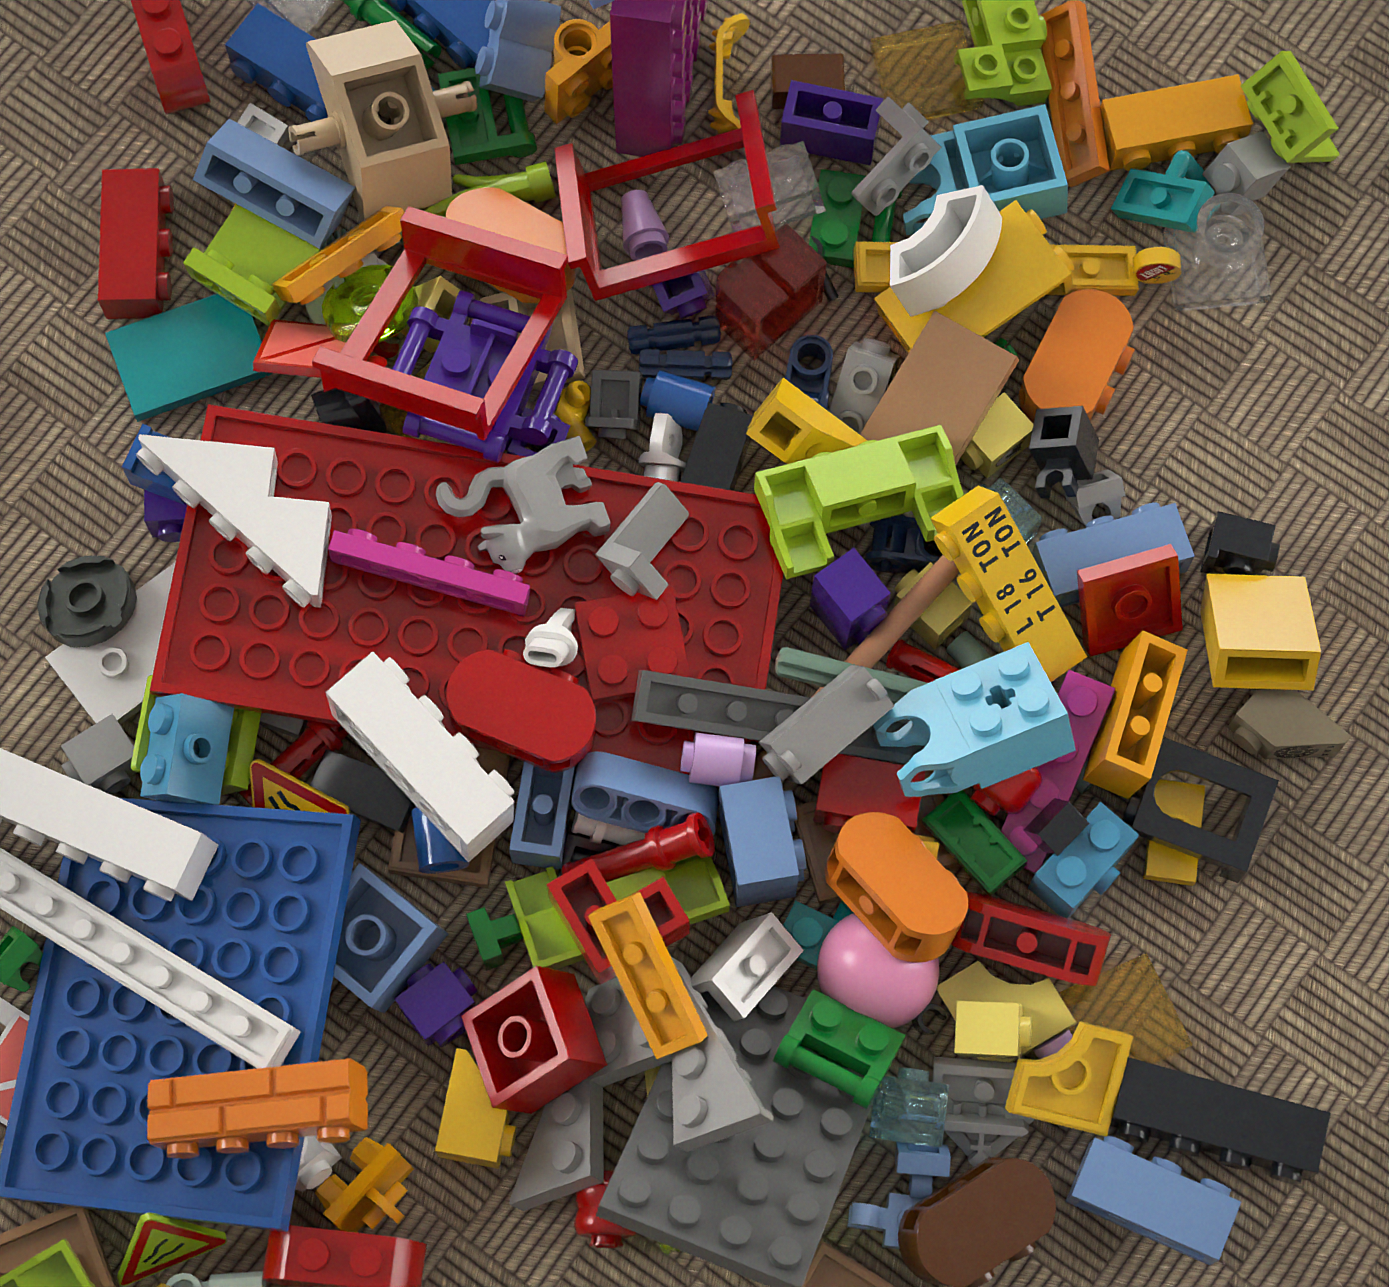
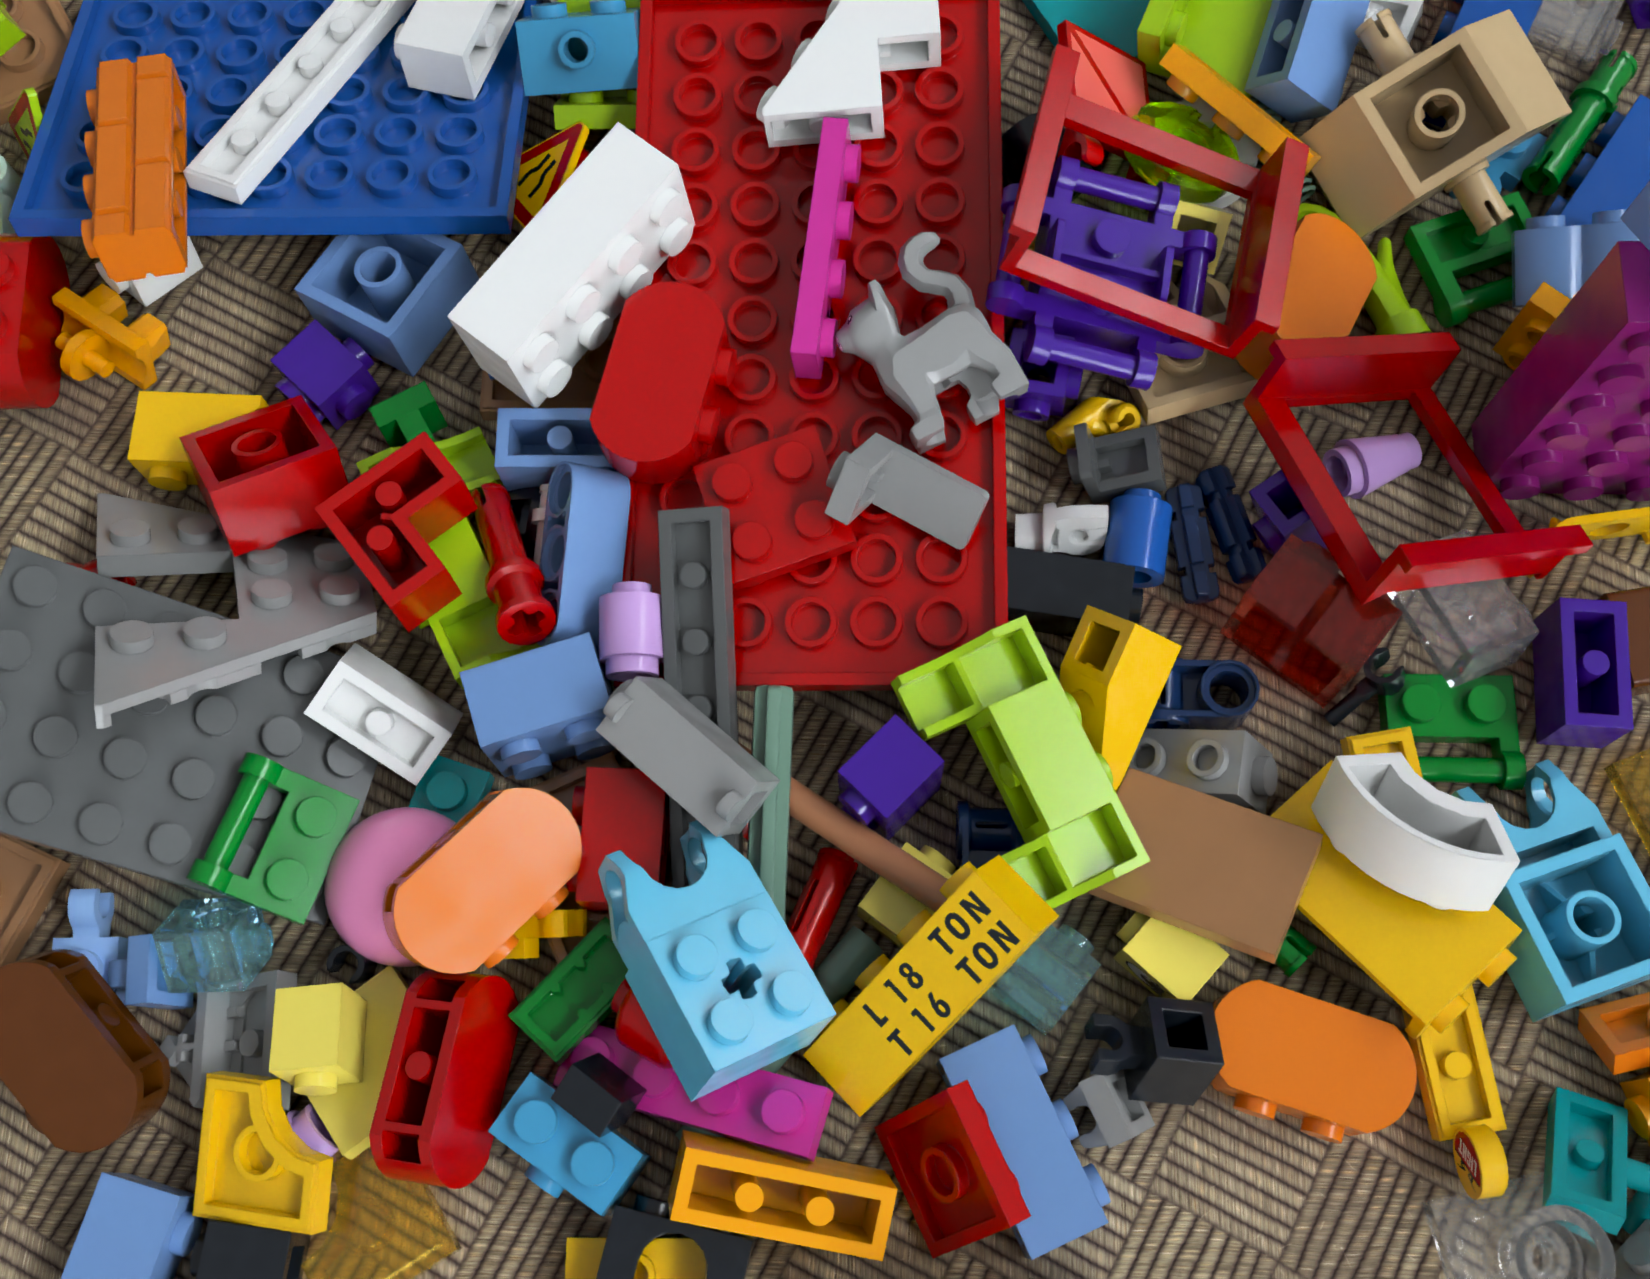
camera: 85 degrees right, 0 degrees up
(552, 642) = (753, 403): white piece -> none
(648, 975) = (304, 560): light orange plate -> none
(902, 162) = (1547, 769): light grey bracket -> none

